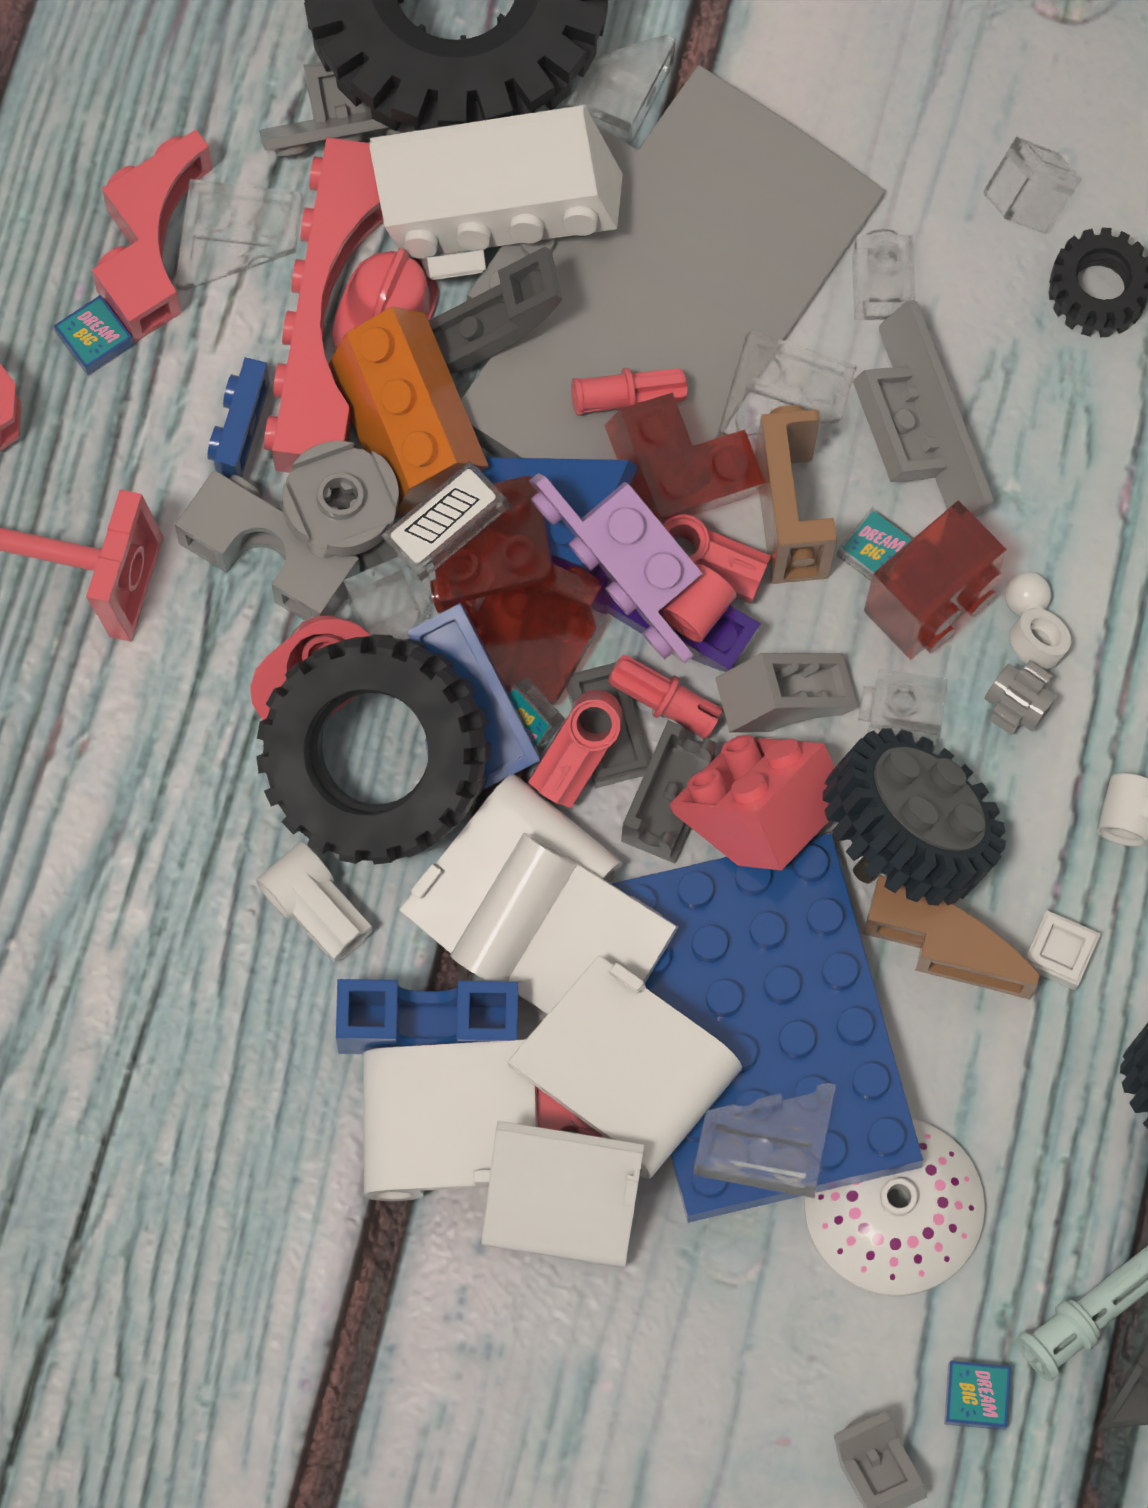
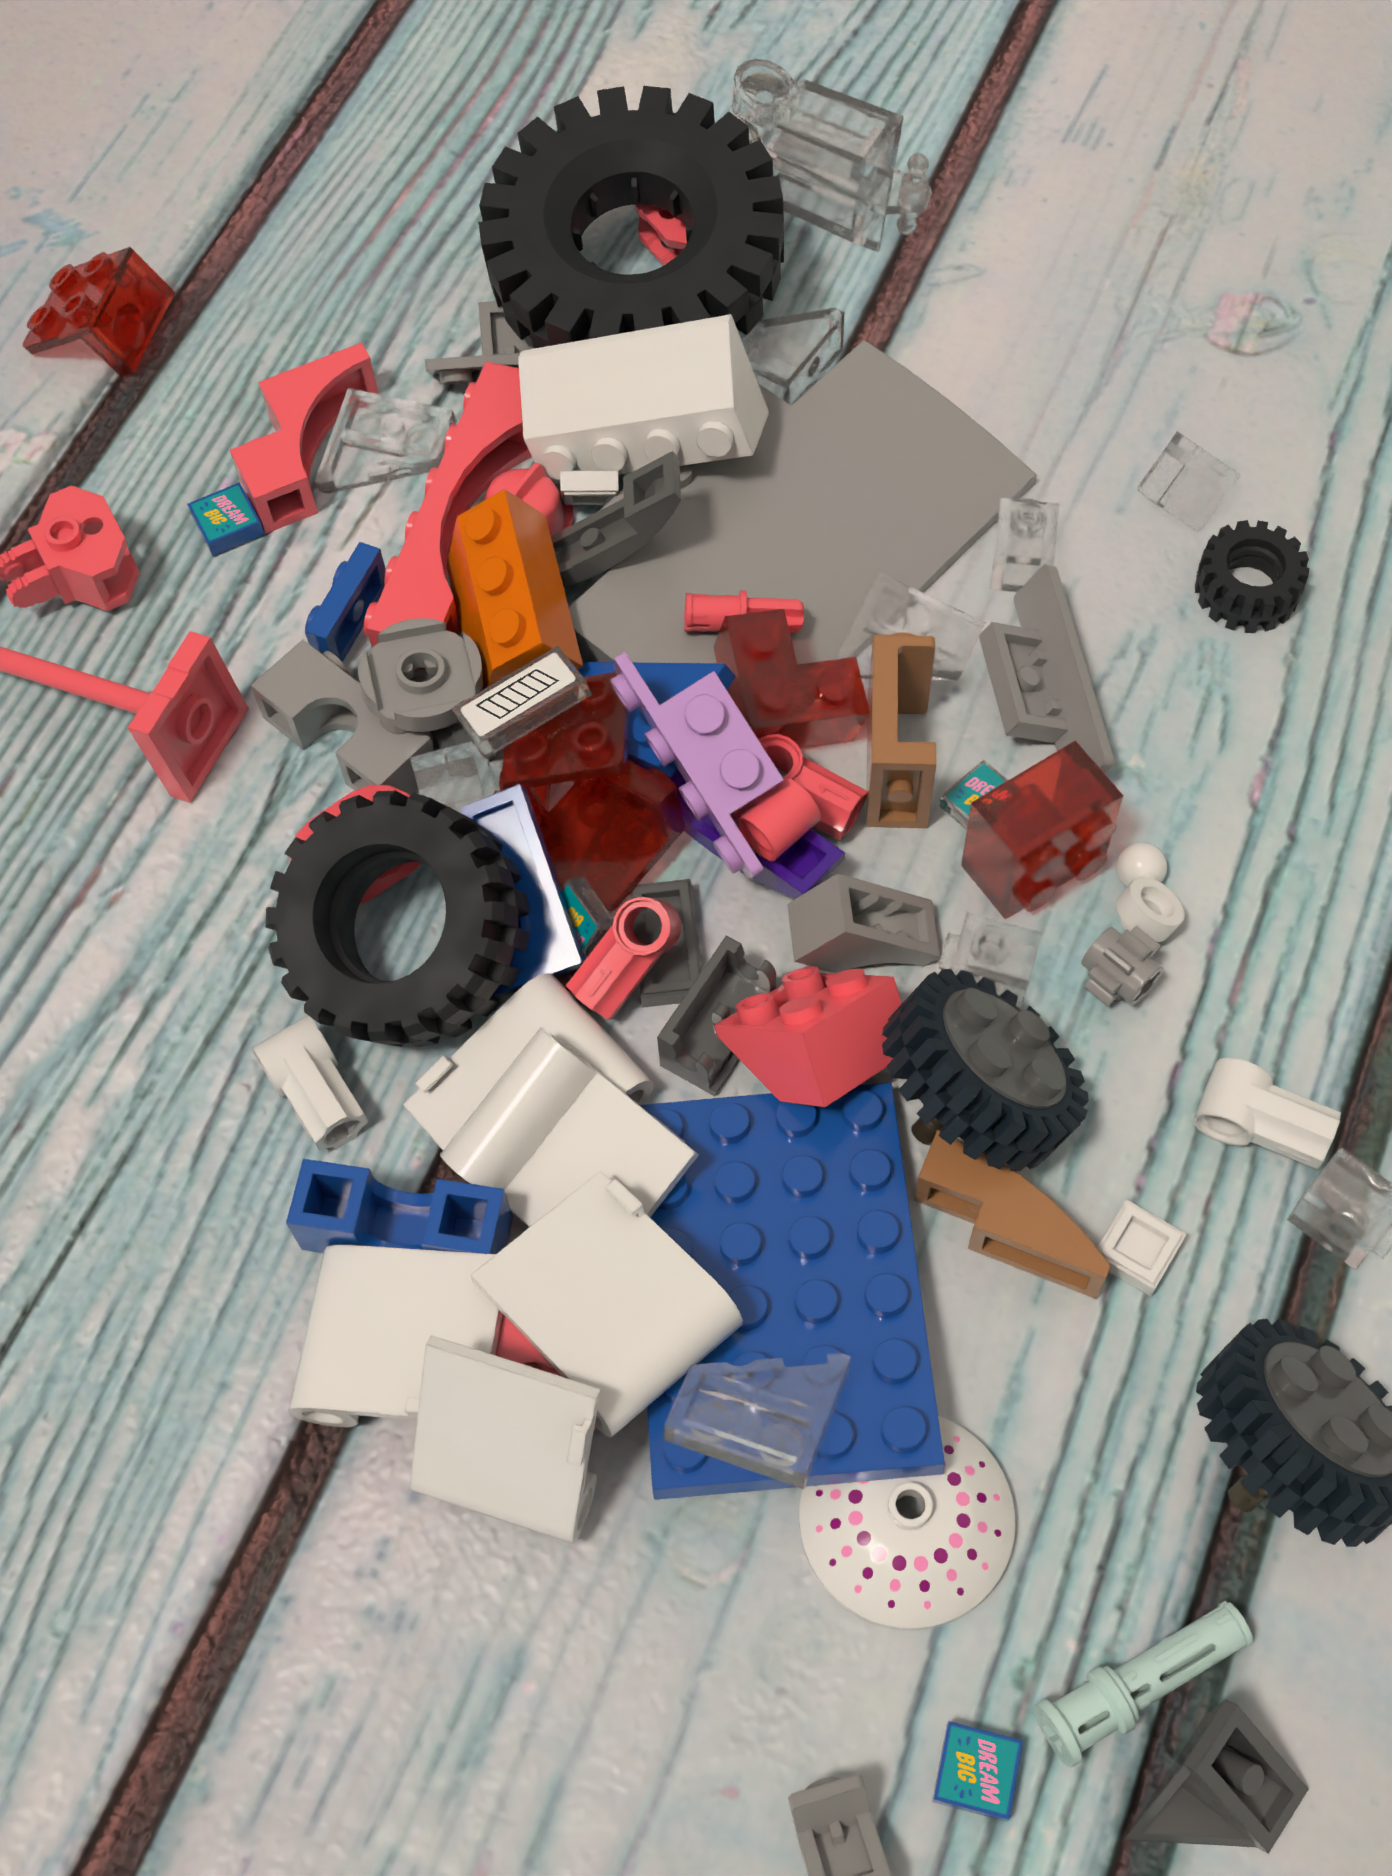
camera: 15 degrees right, 10 degrees down
(665, 696) = (730, 916): coral axle -> none

